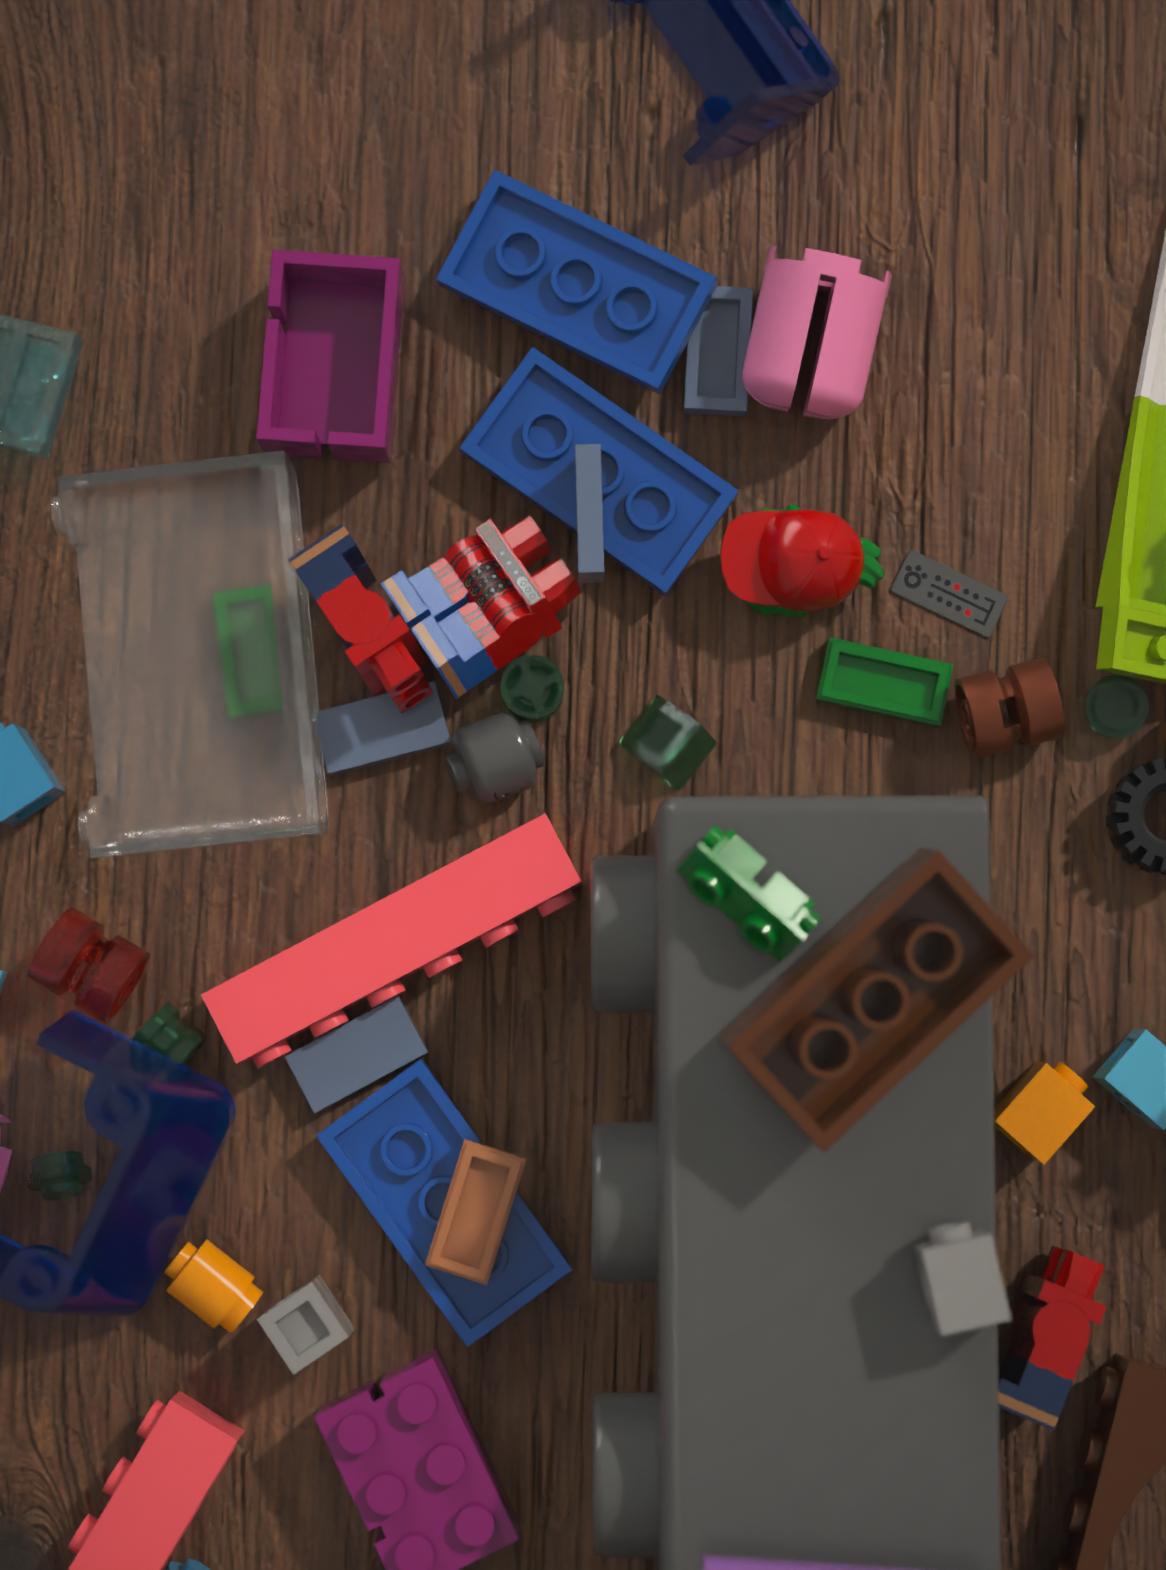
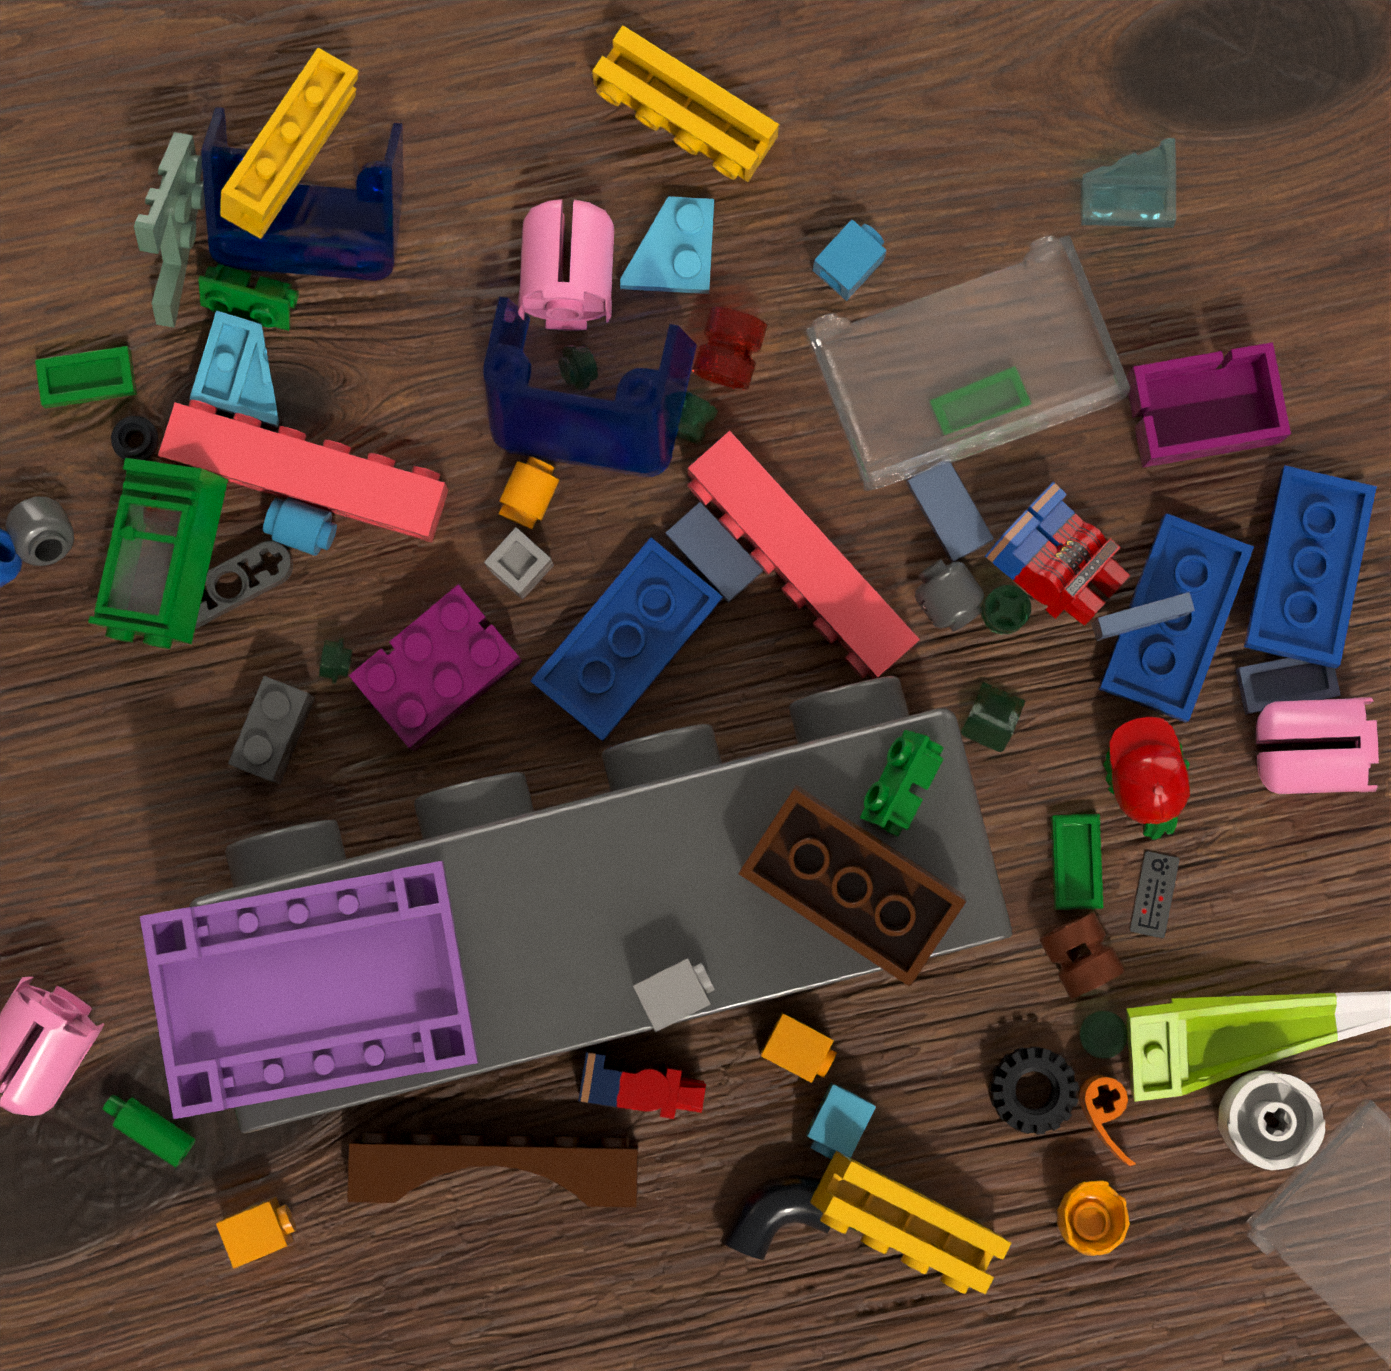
camera: 75 degrees right, 0 degrees up
(374, 638) = (1012, 487): red hips -> none
(475, 1211) = (626, 662): nougat tile -> none

